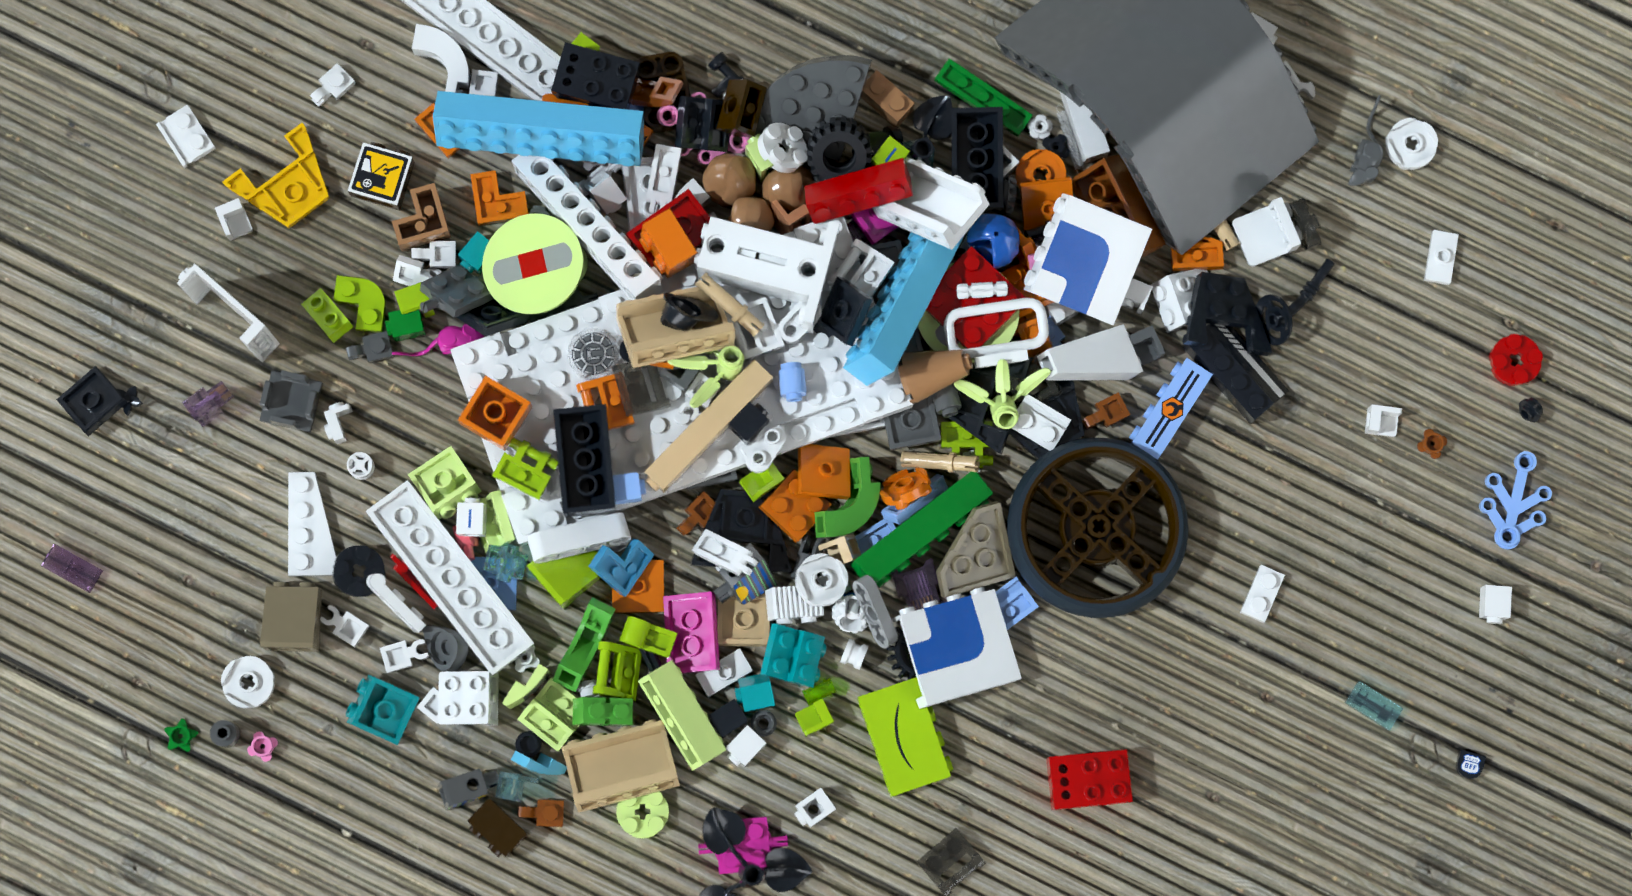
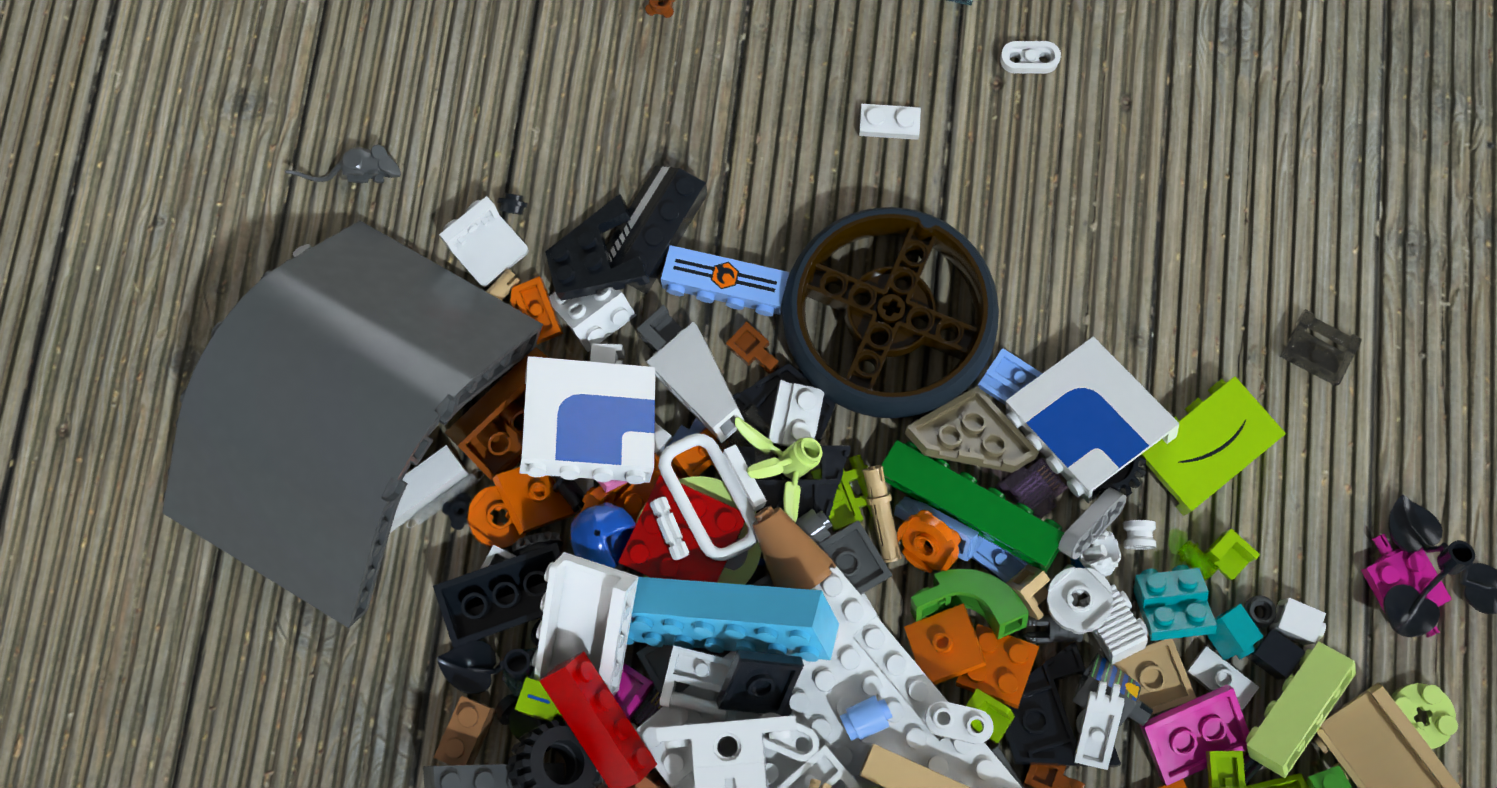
camera: 100 degrees left, 5 degrees down
(749, 422) = (937, 753): black brick -> none
(824, 806) = (1342, 513): white brick -> none
(980, 94) = (424, 620): green plate -> none
(1038, 133) = (447, 544): white plate -> none
(1089, 779) = (1169, 229): red piece -> none
(1278, 730) = (1028, 54): none -> white plate
(1281, 318) = (575, 194): black dish -> none
(1293, 265) = (512, 204): none -> black plate
(1306, 223) = (459, 199): clear smoke plate -> none
(1382, 420) = (654, 60): white panel -> none
(1415, 130) = (333, 109): white plate -> none
(1441, 257) = (450, 57): white plate -> none

